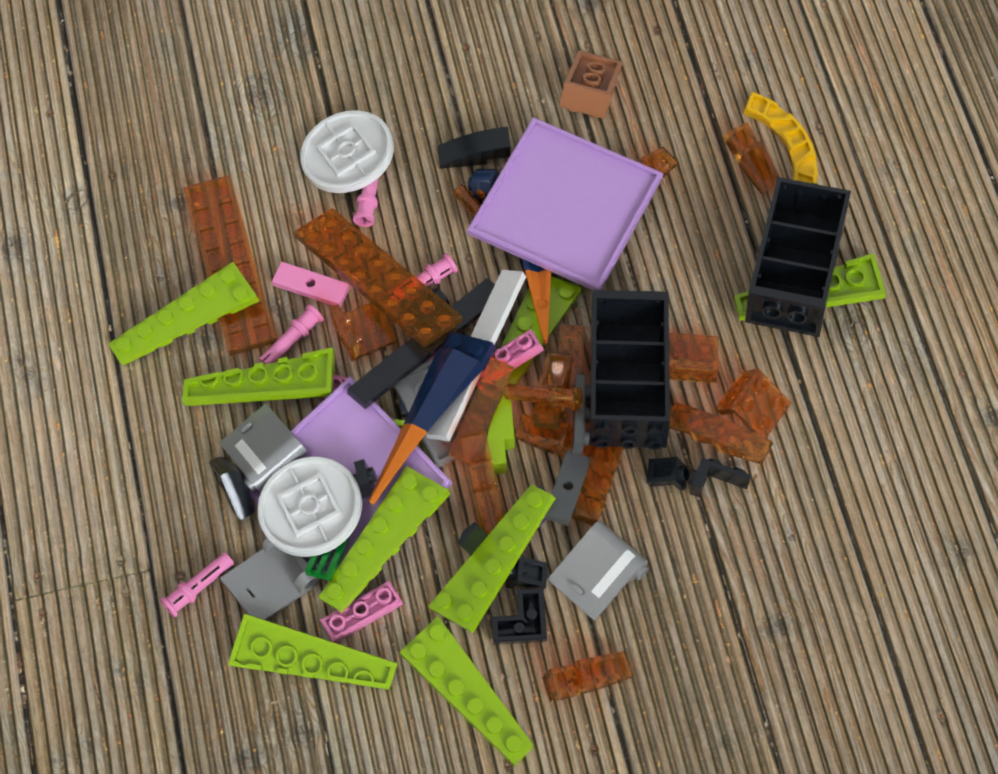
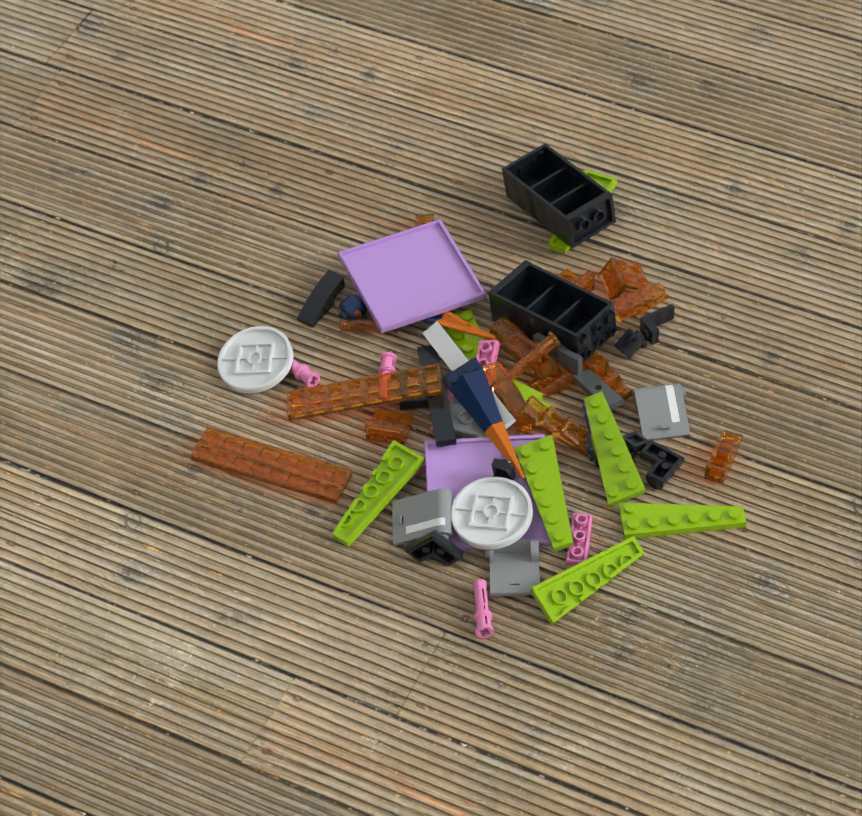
camera: 50 degrees left, 15 degrees down
(203, 304) = (288, 497): lime wing -> none
(298, 281) = (330, 433): bright pink tile -> none
(299, 328) = (356, 457): bright pink pin -> none
(318, 573) = (541, 525): green tile -> none
(590, 84) = (337, 220): nougat slope -> none
(752, 157) = (466, 181): clear orange slope -> none
(790, 133) = (466, 157): yellow tile -> none

